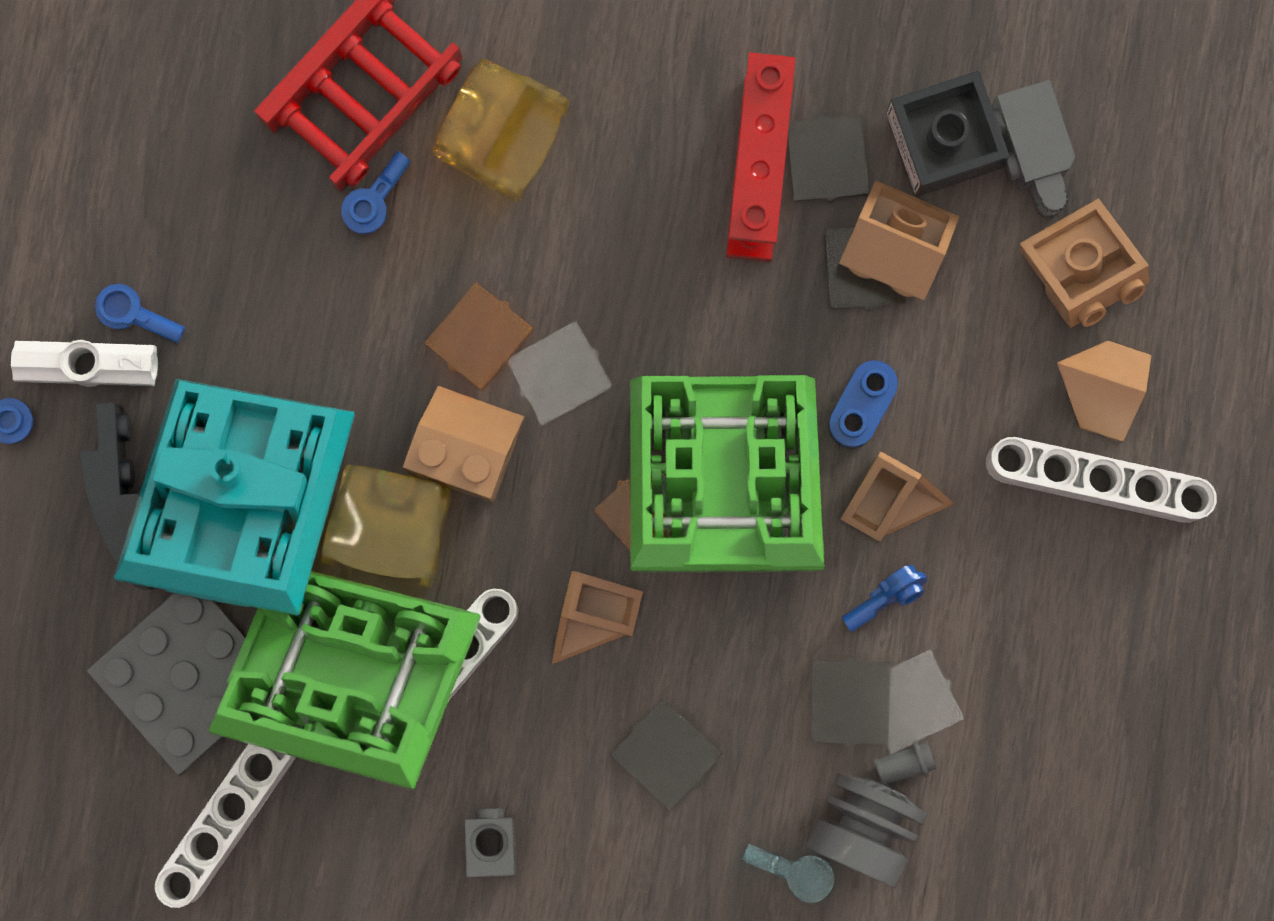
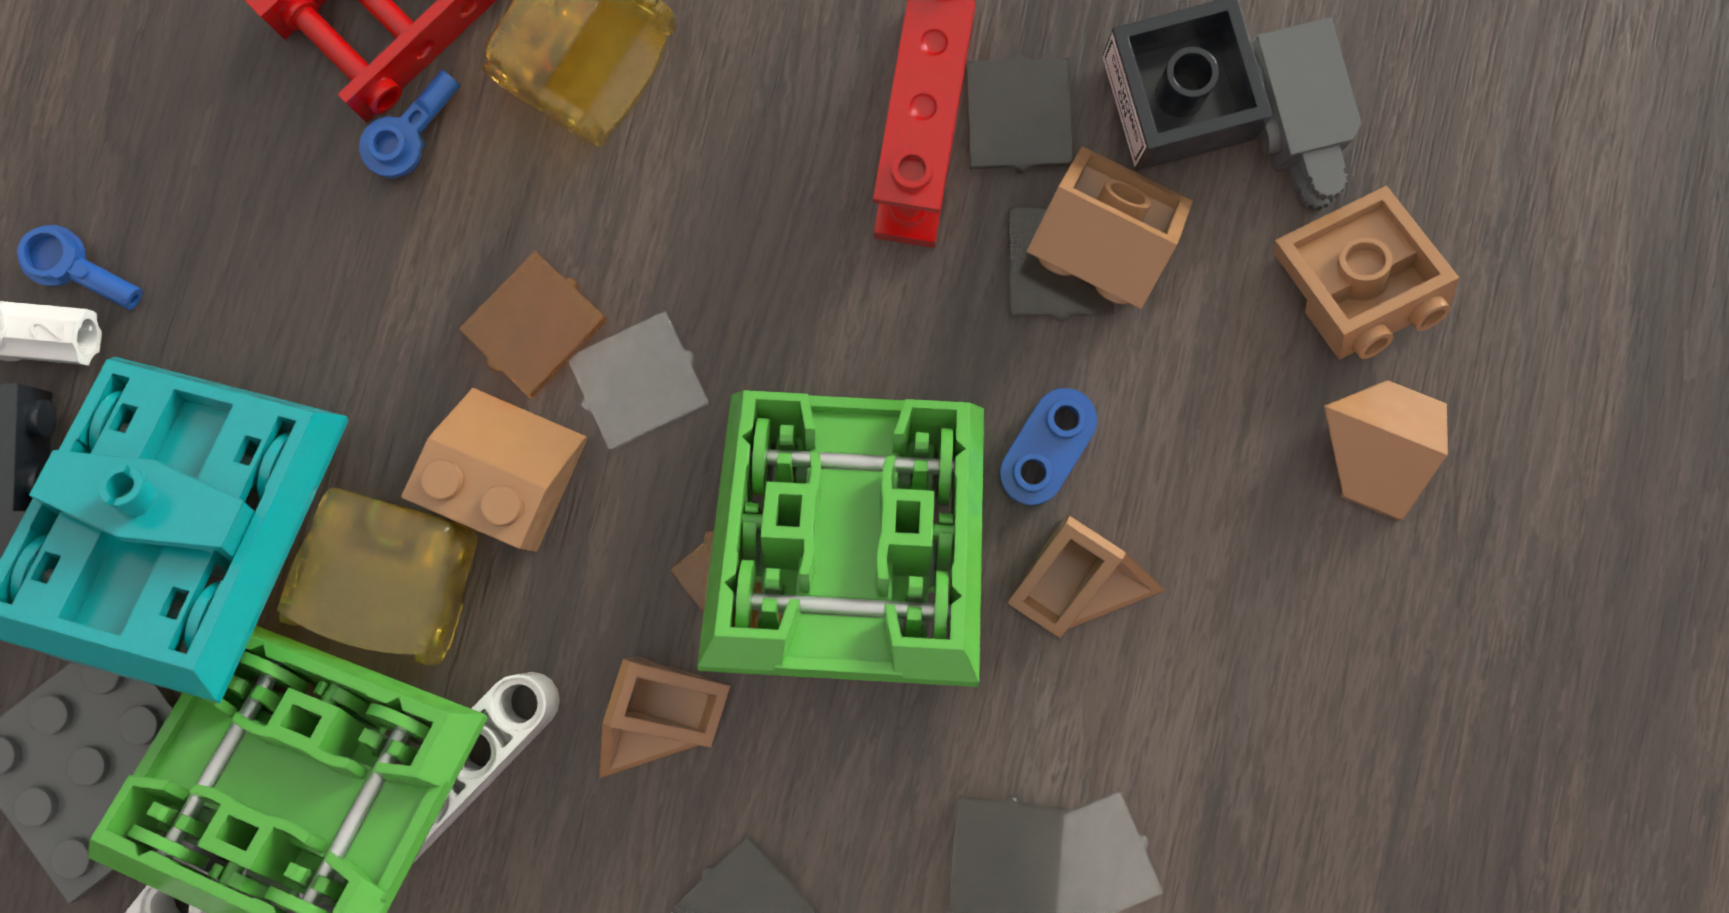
camera: 10 degrees right, 0 degrees up
(901, 587) = (1086, 703): blue plate -> none
(1123, 478) = (1402, 578): white beam -> none

